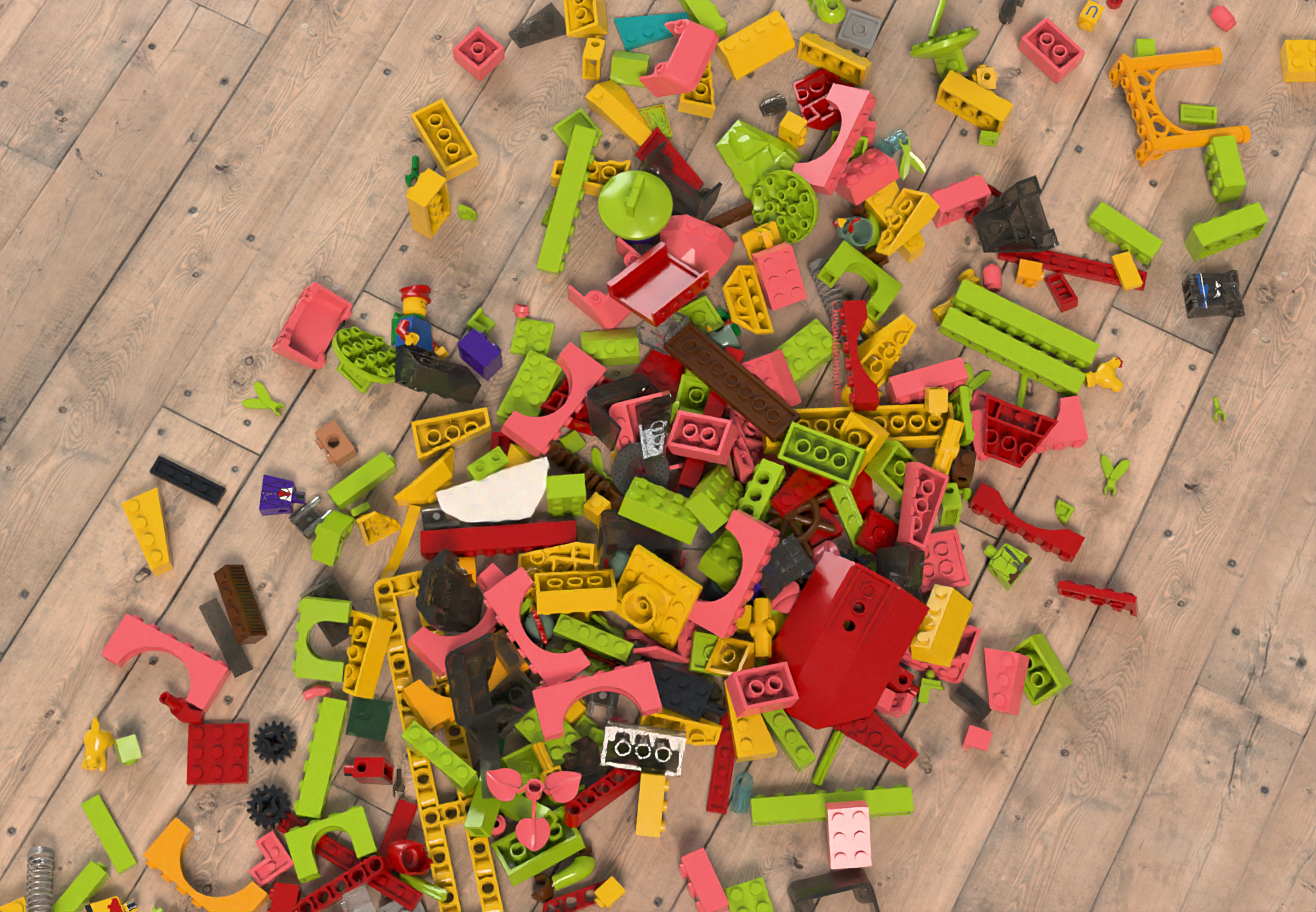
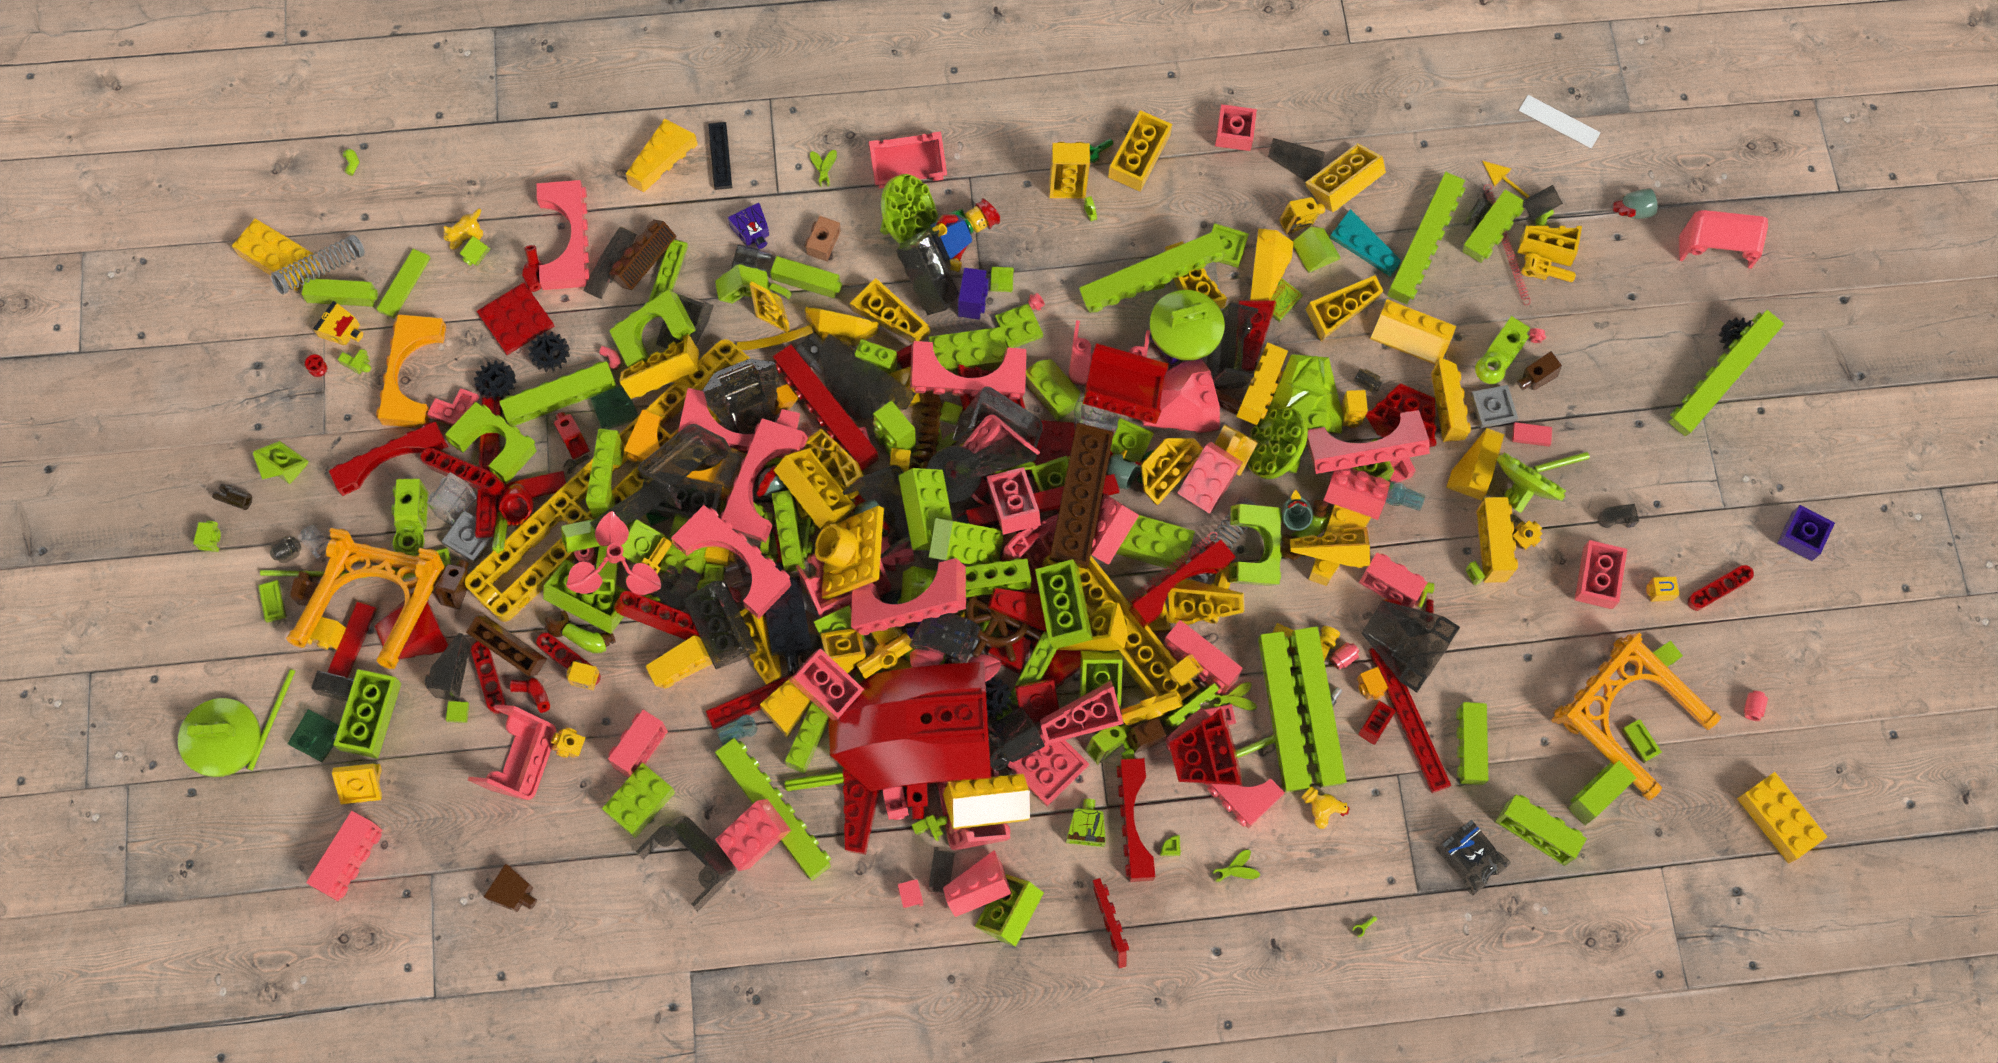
camera: 55 degrees right, 0 degrees up
(272, 596) = (669, 268): none -> lime tile
(687, 61) = (1348, 281): coral windscreen -> none
(733, 193) = (1263, 384): none -> yellow wedge
(900, 20) = (1532, 434): none -> coral tile
(902, 78) = (1476, 468): none -> yellow wedge
(909, 158) = (1403, 518): lime piece -> none
(1126, 271) = (1437, 766): yellow tile -> none

